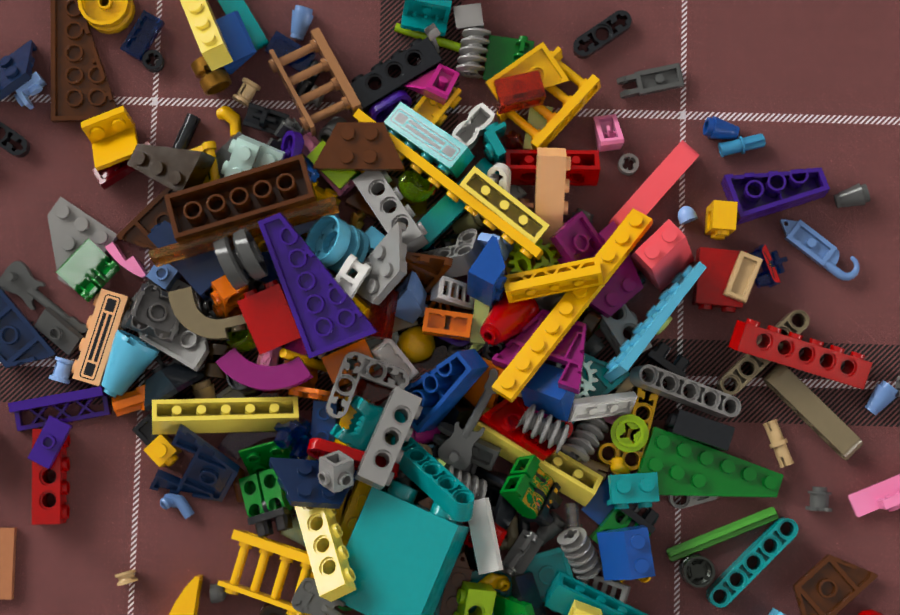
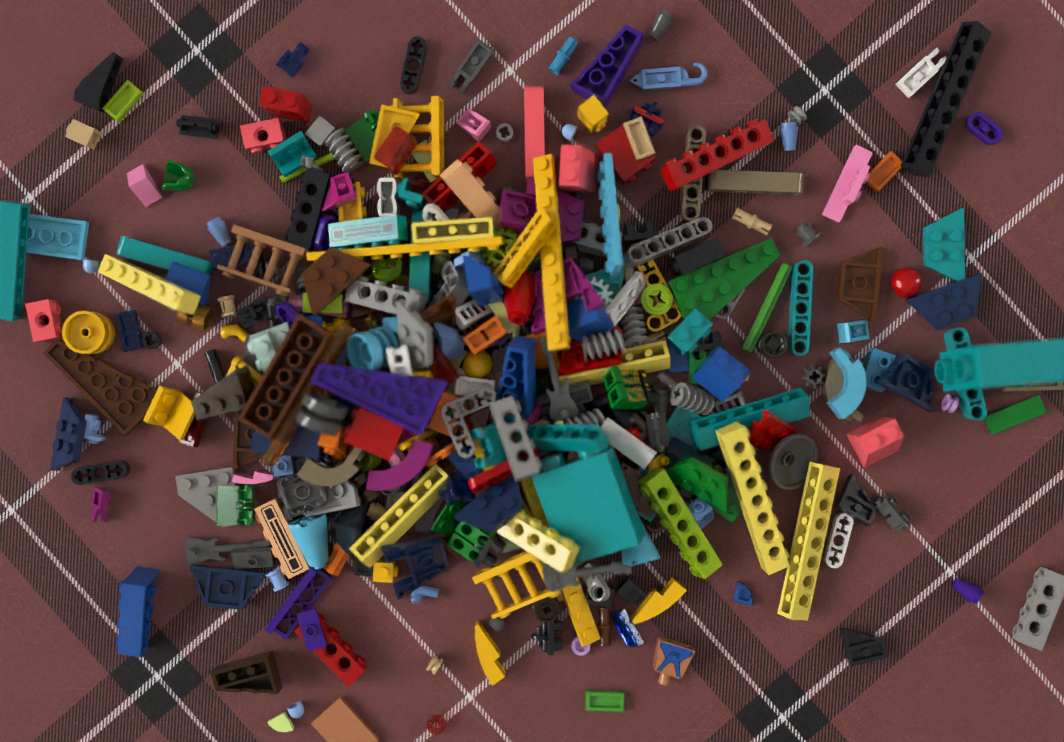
camera: 50 degrees left, 5 degrees up
(336, 471) = (501, 488): light grey brick -> none
(618, 466) = (669, 326): yellow arm -> none
(719, 129) = (541, 58): blue cone -> none

